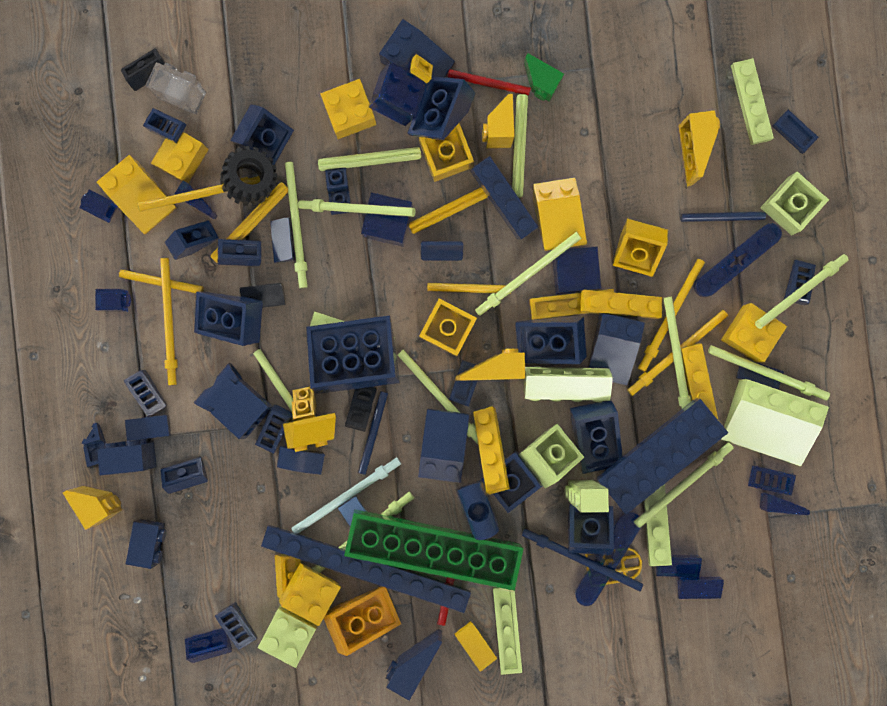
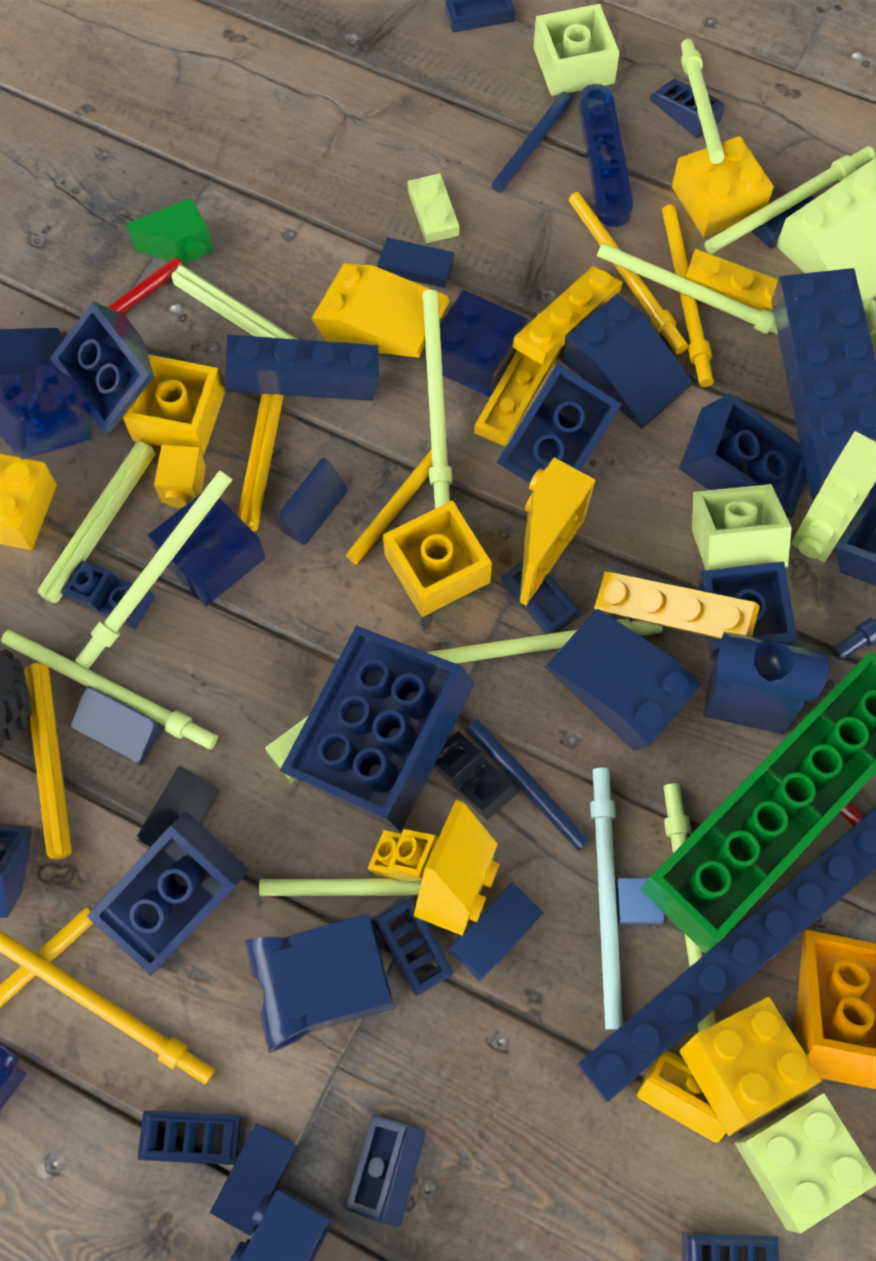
camera: 50 degrees left, 20 degrees down
(239, 252) = (80, 804): dark blue slope -> none
(413, 181) = (179, 475): none -> yellow brick
(421, 68) = (30, 358): yellow tile -> none
(499, 128) = (198, 310): yellow slope -> none
(567, 384) = (641, 447): yellowish green brick -> none
(607, 207) = (416, 262): none -> dark blue tile
(640, 247) = (503, 250): yellow slope -> none
(646, 193) = (433, 208): none -> yellowish green plate
(697, 140) = (413, 105): yellow slope -> none
(752, 101) = (404, 33): yellowish green plate -> none

